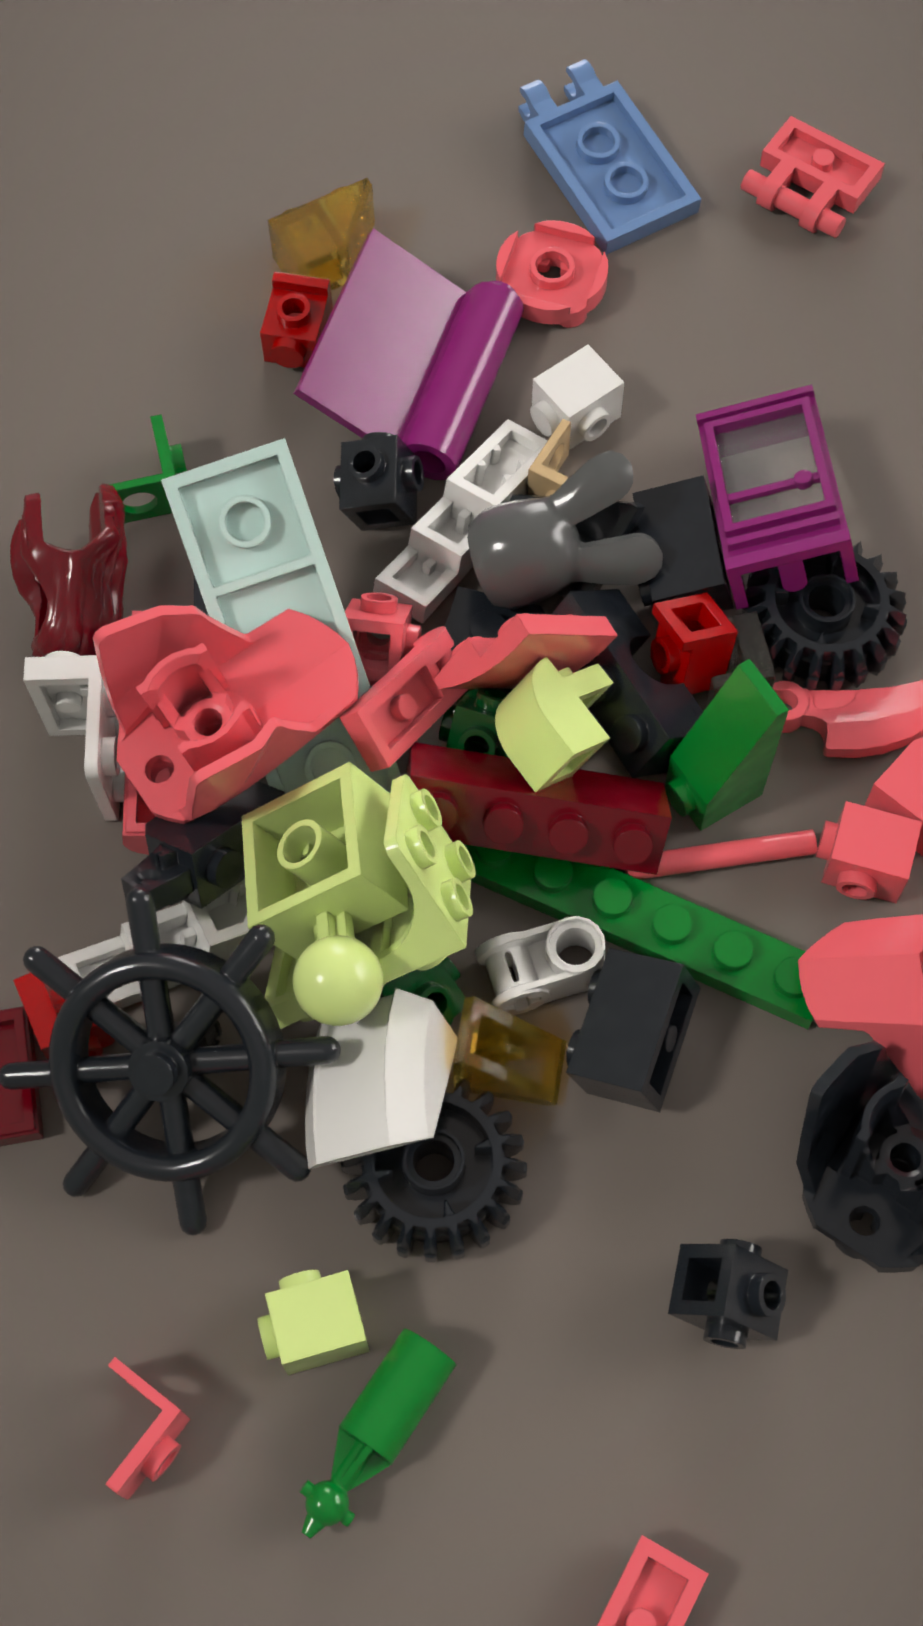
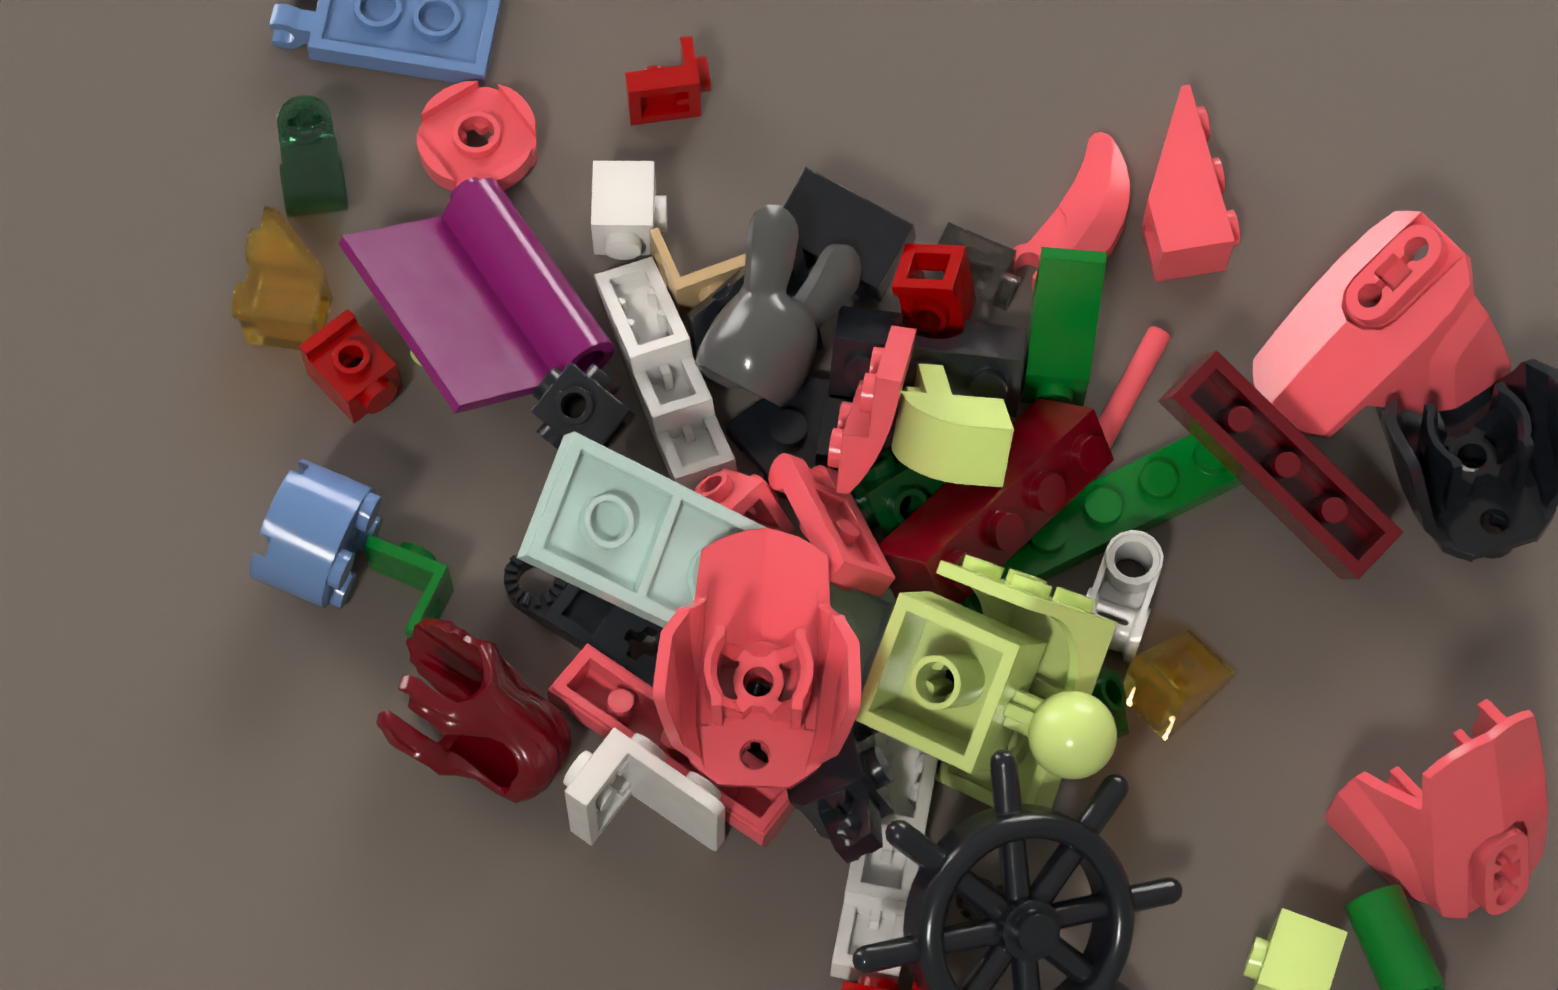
camera: 55 degrees left, 0 degrees up
(134, 375) = (315, 534): none -> medium blue brick
(383, 1084) = (1174, 782): white slope -> none
(437, 185) = (310, 163): none -> clear green piece
(450, 1206) = (1225, 833): black gear -> none
(549, 1374) = (1470, 828): none -> coral piece
(632, 1029) = (1229, 568): black brick -> none
(703, 361) = (668, 92): none -> red bracket
(729, 1292) = (1486, 650): black brick -> none
(748, 999) = (1280, 466): none -> dark red brick
(774, 488) = (853, 127): magenta door -> none
(834, 648) = (984, 146): black gear -> none
(868, 852) = (1206, 301): coral brick -> none

